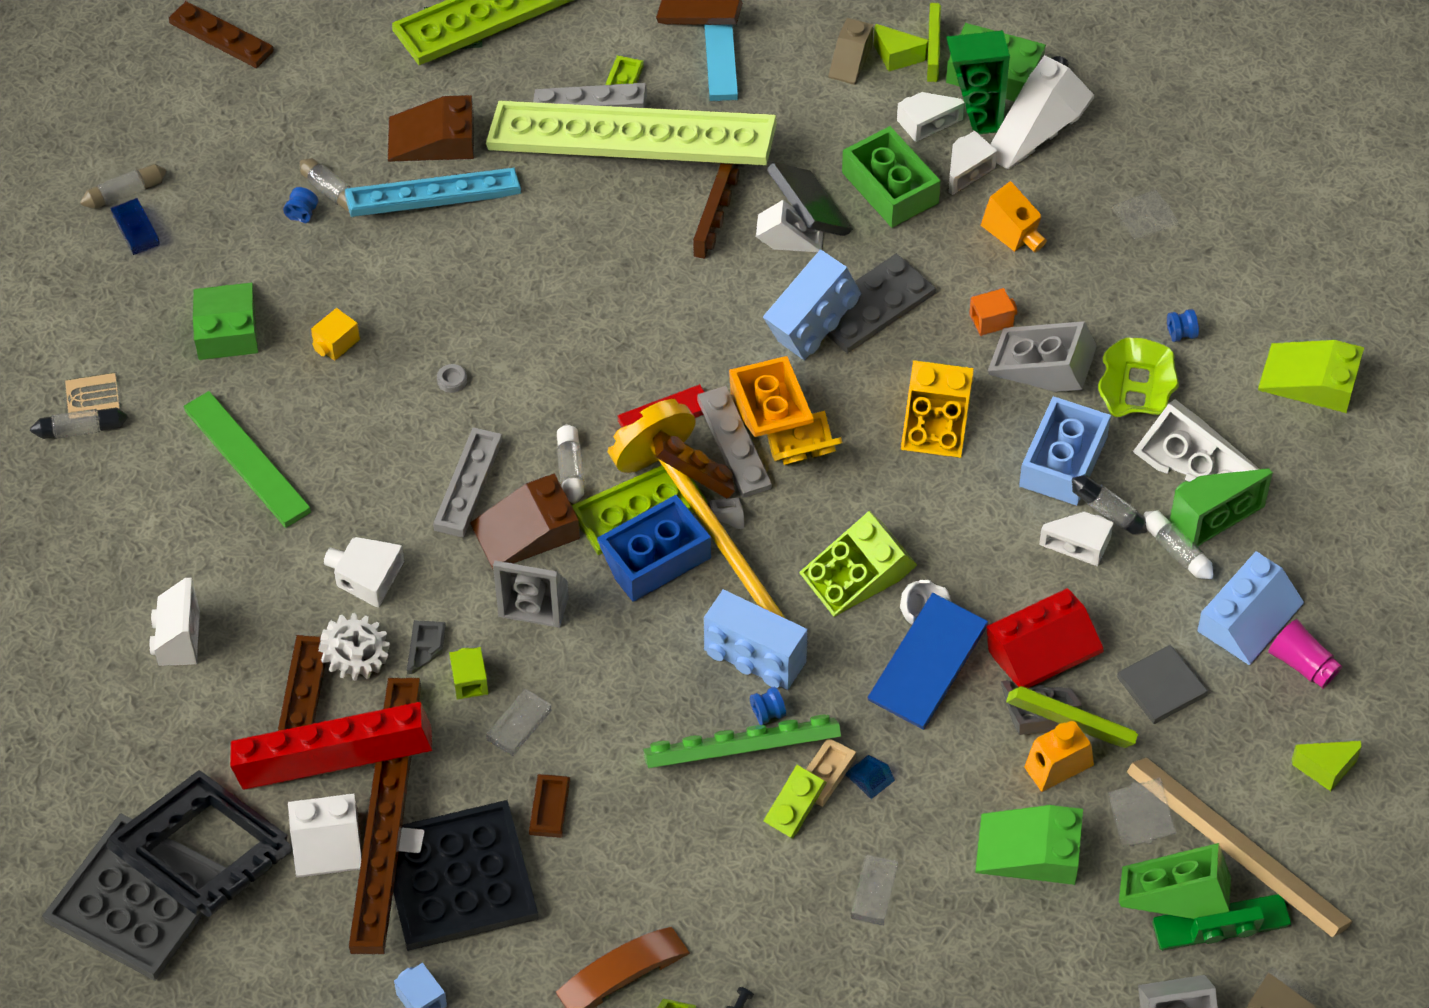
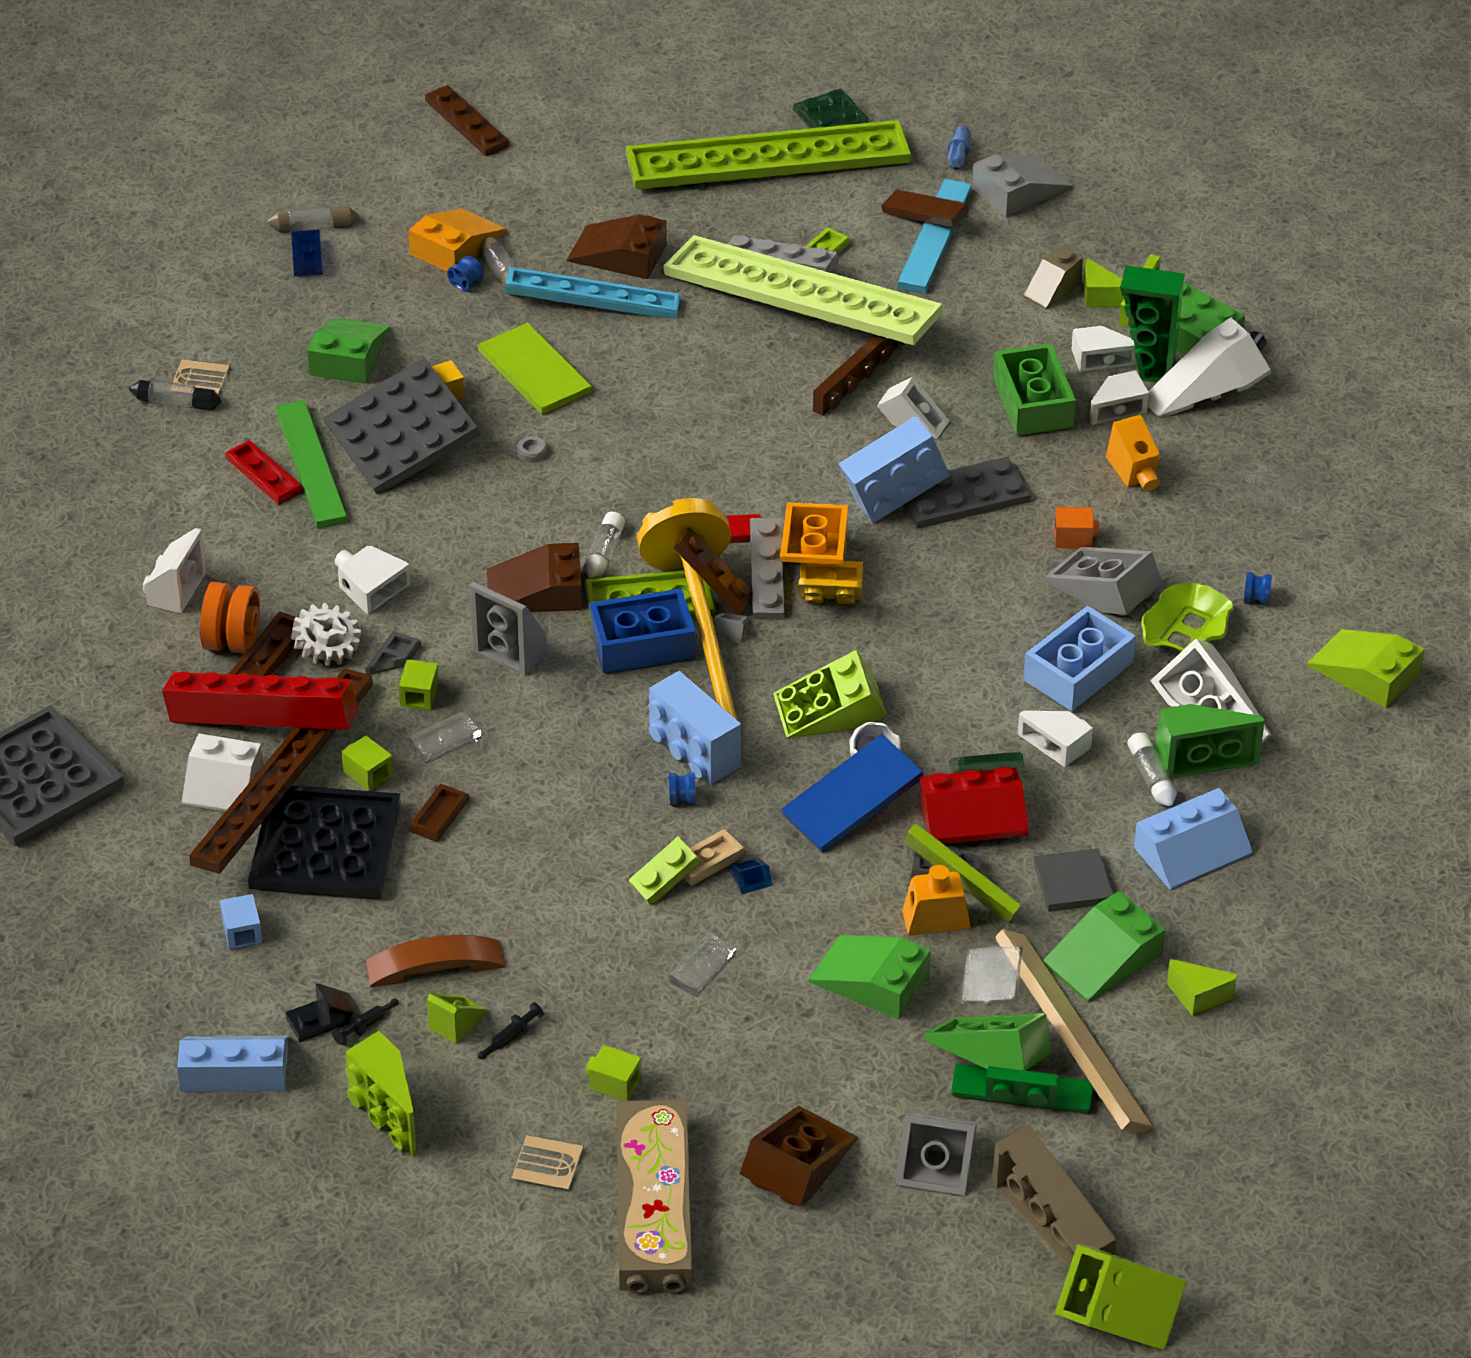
camera: 20 degrees right, 10 degrees down
(175, 810) = (102, 714): black hinge -> none
(205, 482) = (264, 472): none -> red tile
(257, 661) = (229, 617): none -> orange wheel
(269, 169) = (450, 236): none -> light orange slope
(320, 393) = (401, 426): none -> dark grey plate
(411, 840) = (294, 799): white sticker -> none
(413, 288) = (534, 368): none -> lime tile
(459, 776) = (367, 763): none -> lime brick
(467, 482) = (500, 535): light grey plate -> none
(728, 743) = (655, 810): bright green plate -> none
(809, 199) = (944, 388): black tile -> none
(937, 409) = (977, 591): yellow slope -> none
(1034, 588) = (986, 761): none -> clear green tile
(1109, 504) = (1096, 712): piece -> none
(1227, 748) = (1106, 947): none -> bright green slope
(1305, 654) = (1225, 890): dark pink plant -> none

